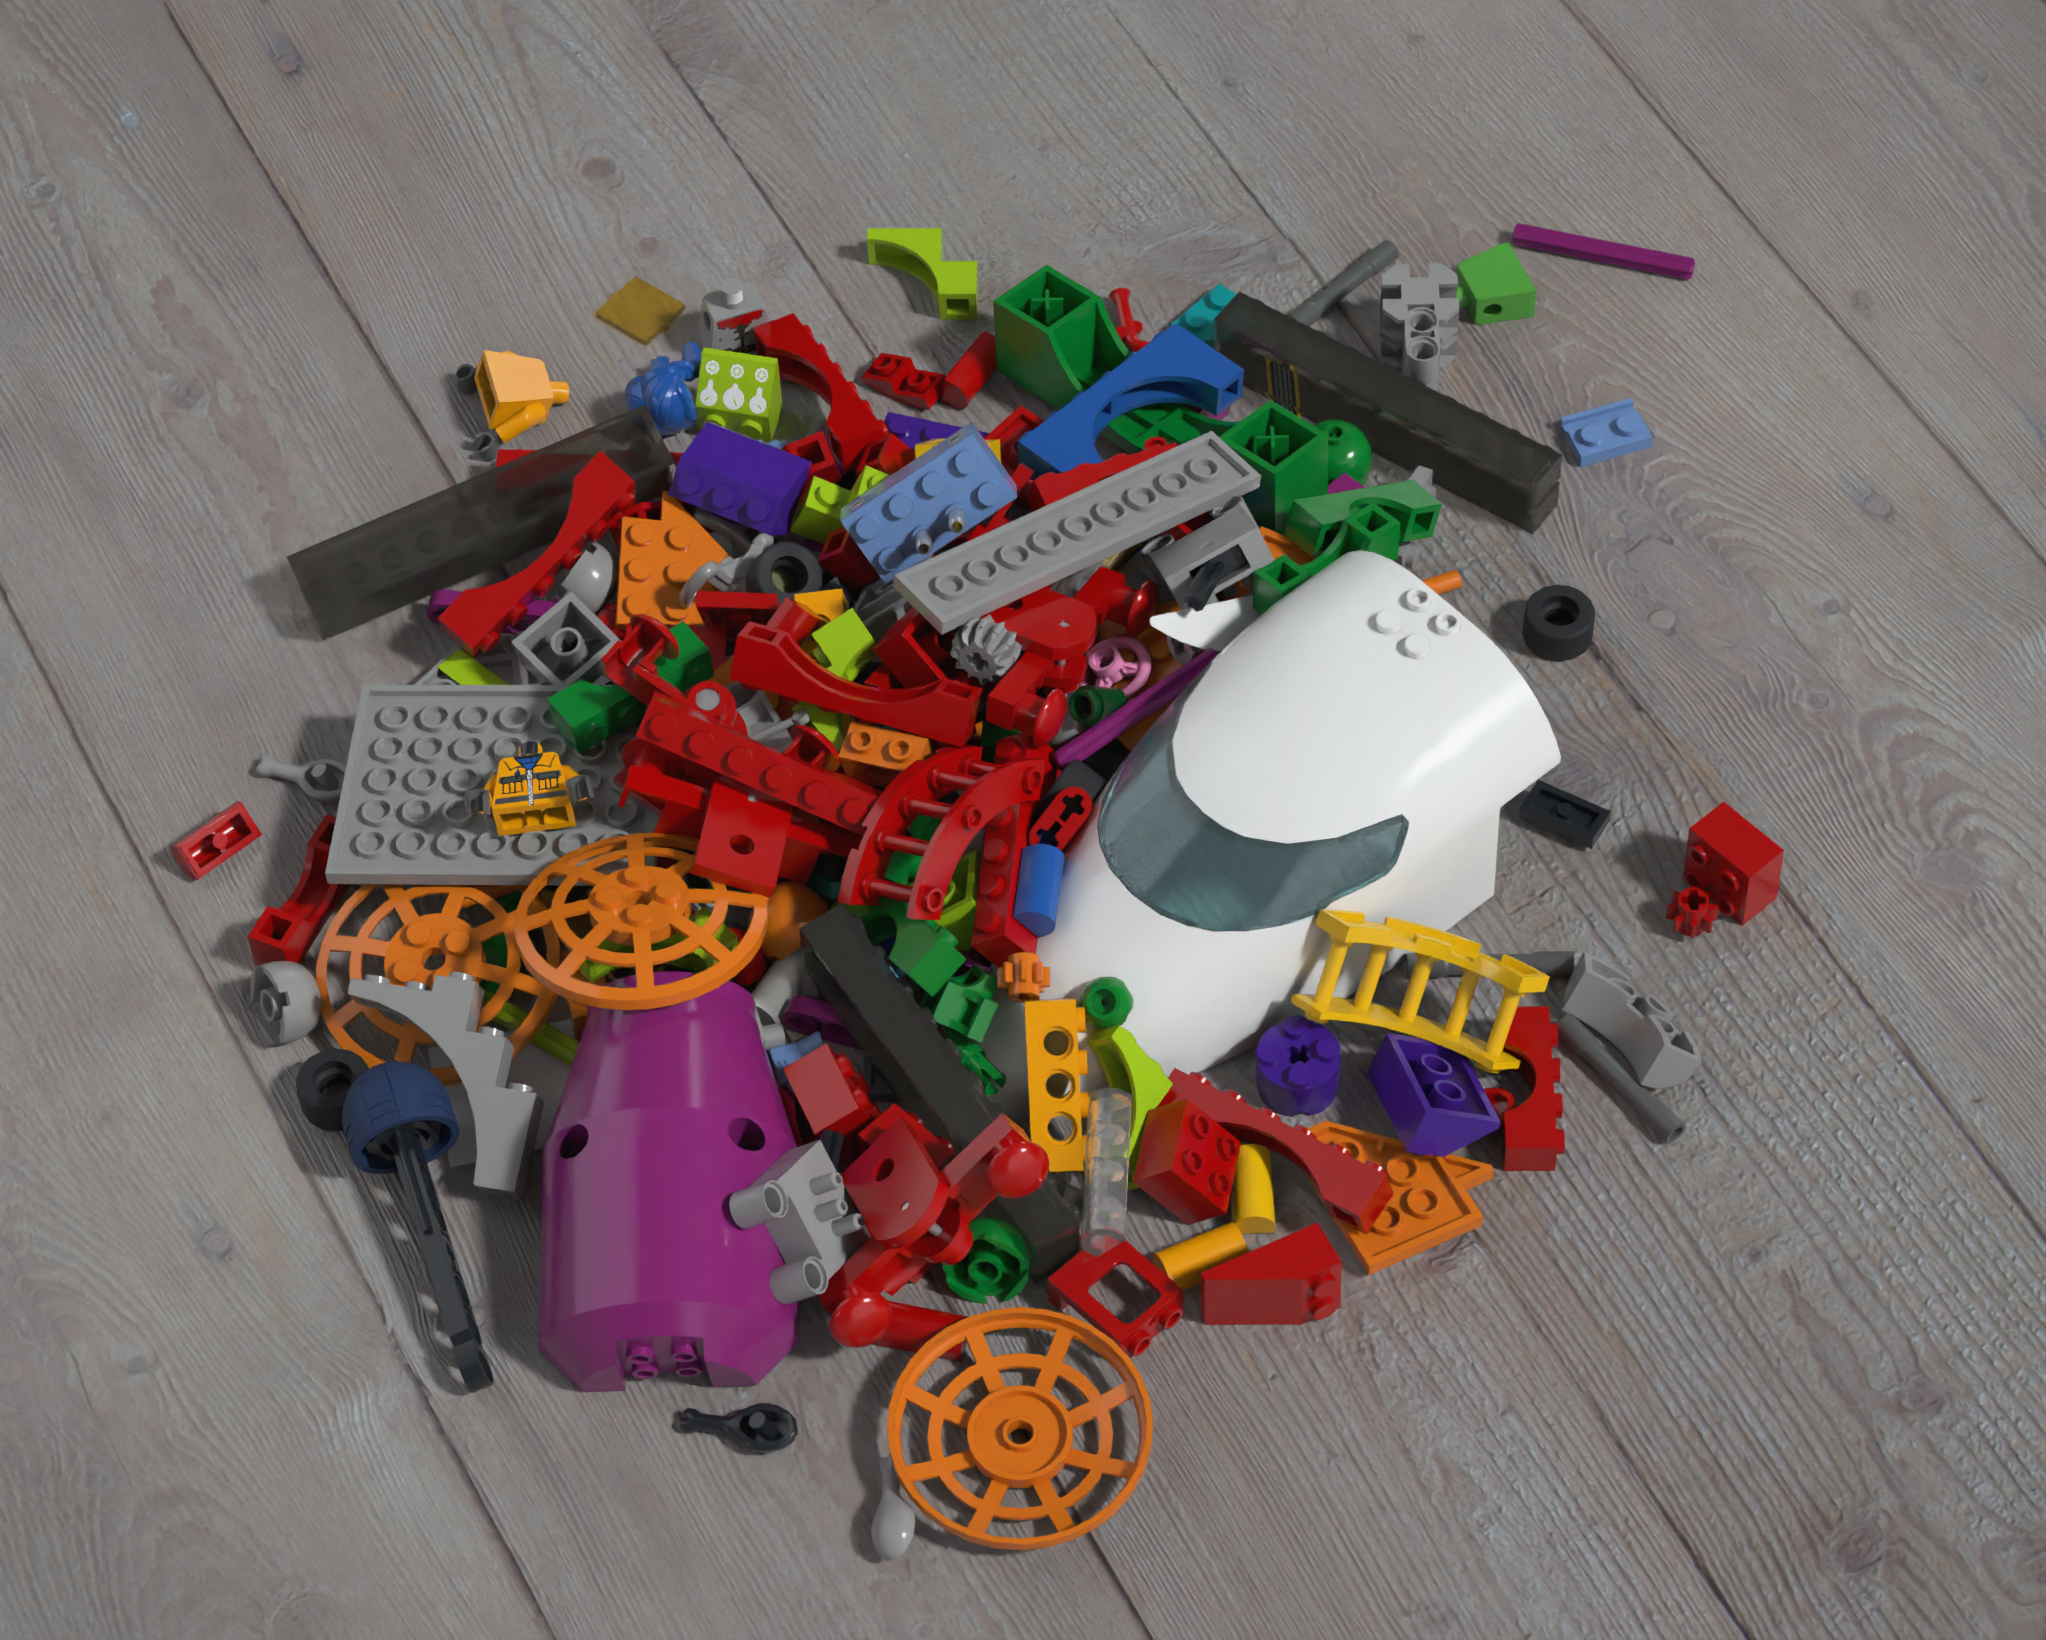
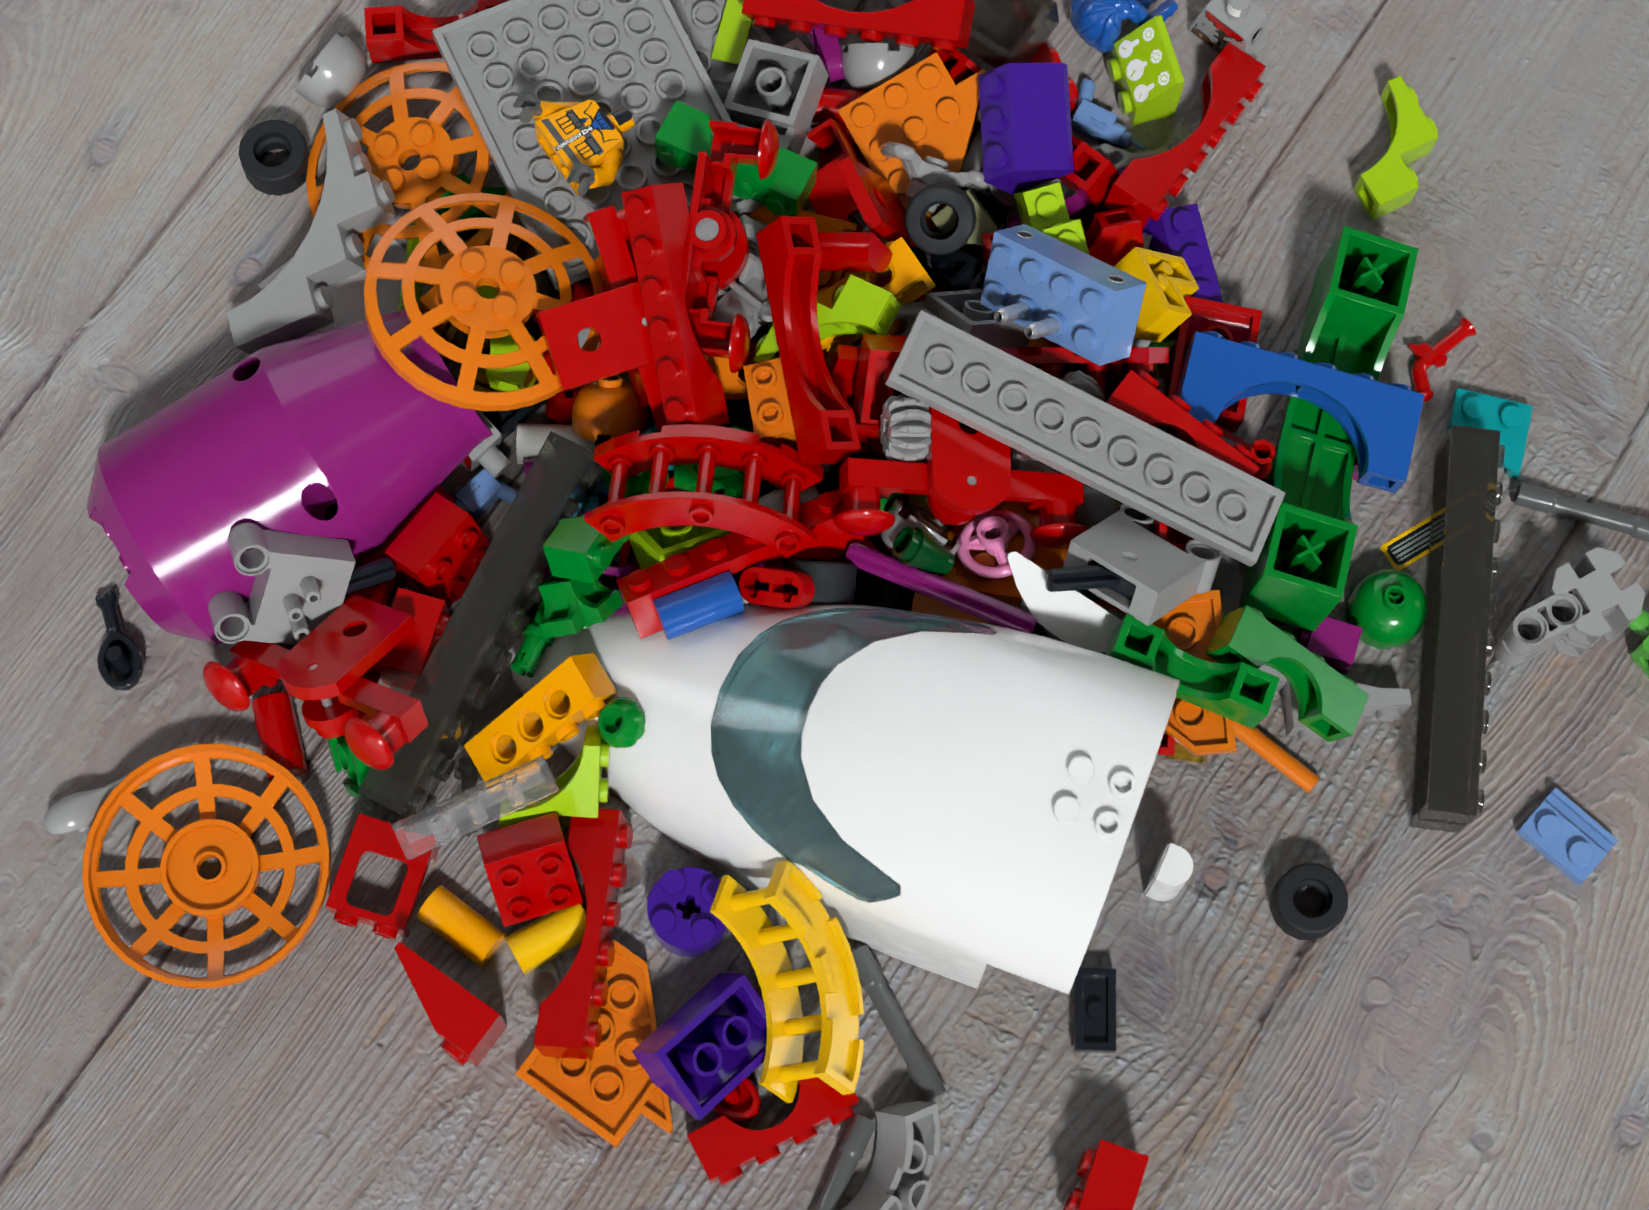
camera: 55 degrees right, 20 degrees up
(396, 1123) = (251, 217): piece -> none
(900, 380) = (1260, 199): red slope -> none
(970, 372) = (1295, 247): red brick -> none
(1023, 977) = (609, 640): orange gear -> none
(1692, 911) = (1046, 1165): red gear -> none

